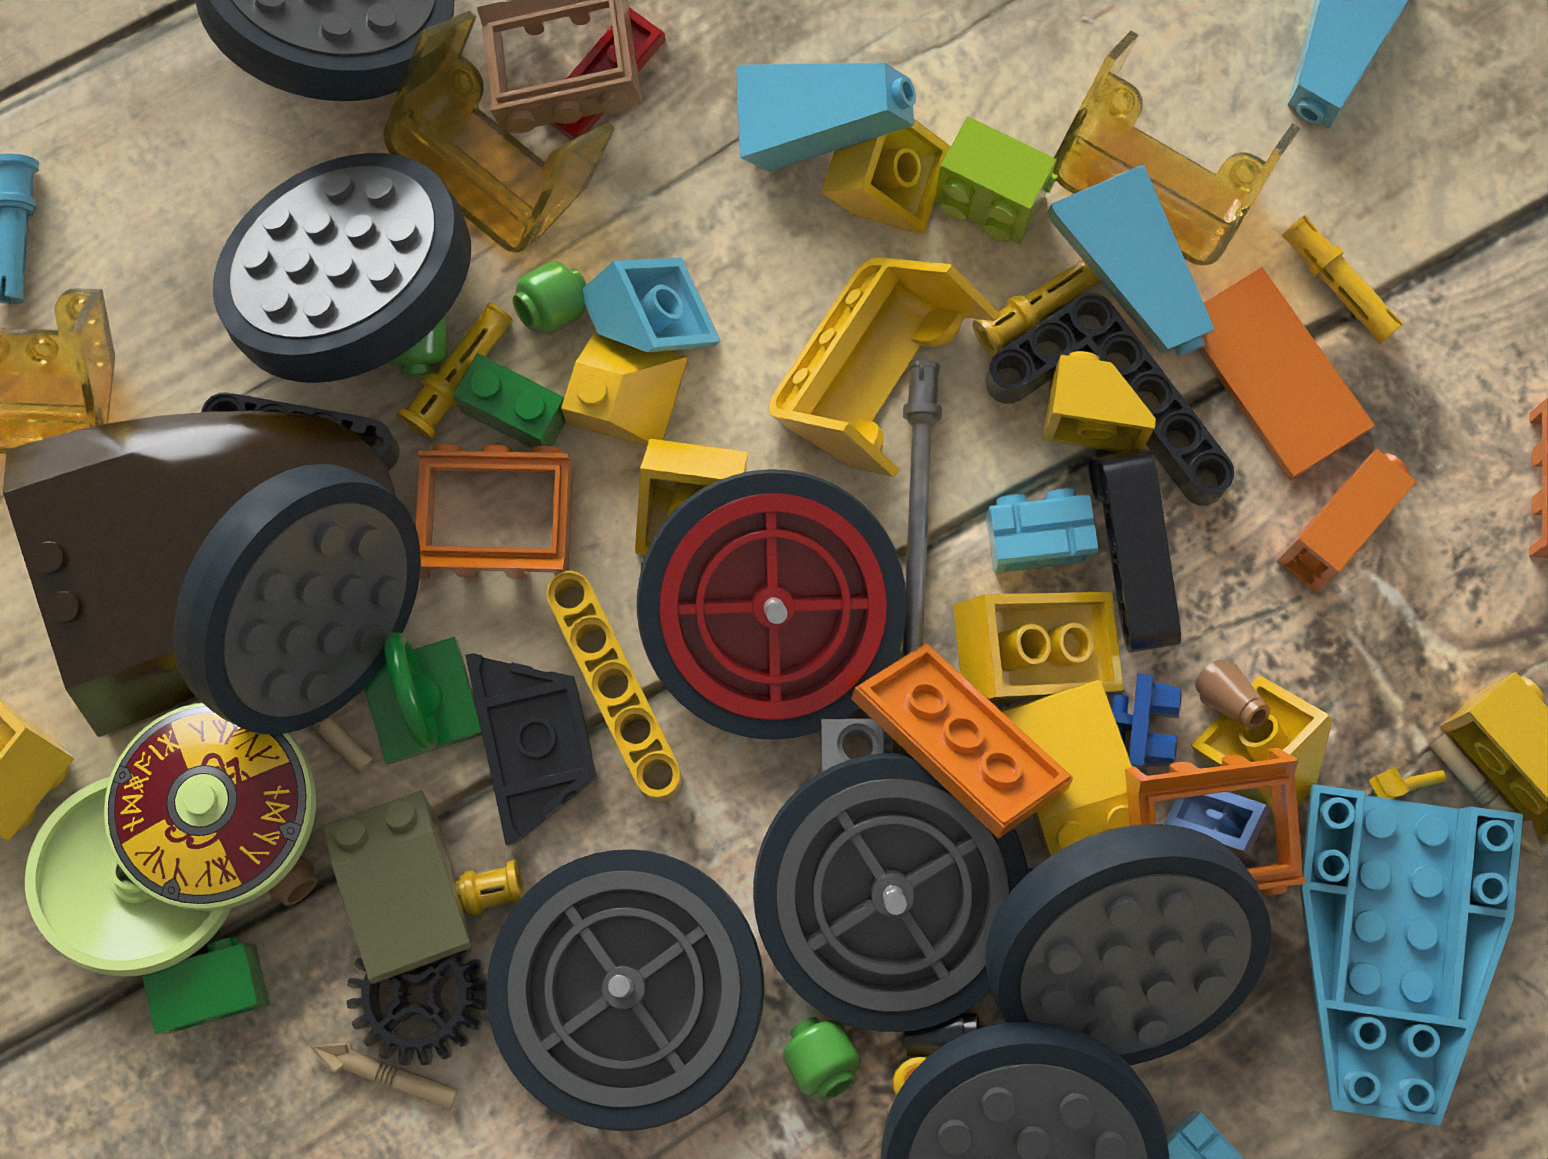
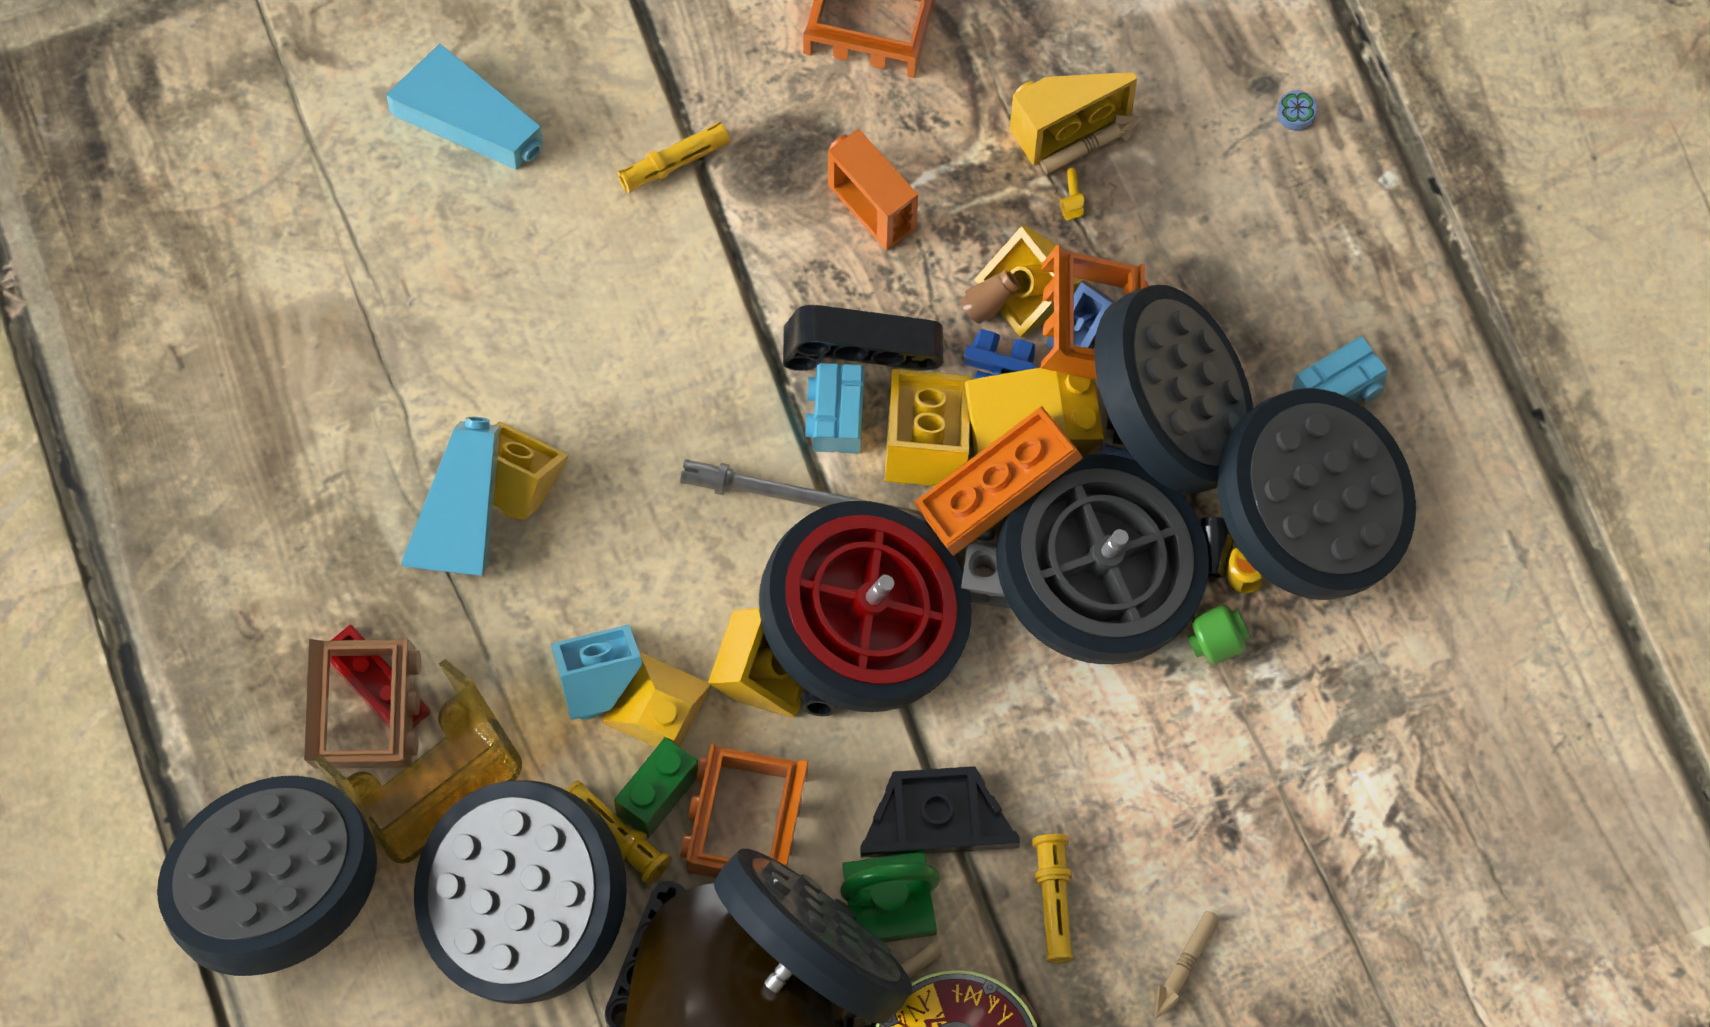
camera: 85 degrees left, 10 degrees down
(397, 886) = (1043, 920): olive slope -> none
(398, 1011) = (1117, 911): black gear -> none
(549, 297) = (569, 746): bright green head -> none
(606, 663) = (919, 728): yellow beam -> none
(625, 990) = (1146, 767): dark grey wheel -> none
(864, 350) = (660, 516): yellow windscreen -> none
(994, 181) = (547, 386): lime brick -> none
(1026, 312) = (654, 387): yellow pin -> none
(1094, 406) = (747, 348): yellow slope -> none
(1134, 254) = (632, 292): medium azure slope -> none
(1142, 375) = (731, 329): black beam -> none
(1199, 204) = (571, 273): clear yellow windscreen -> none
(1280, 376) = (738, 220): orange tile -> none
(1402, 942) = (1193, 214): medium azure wedge -> none

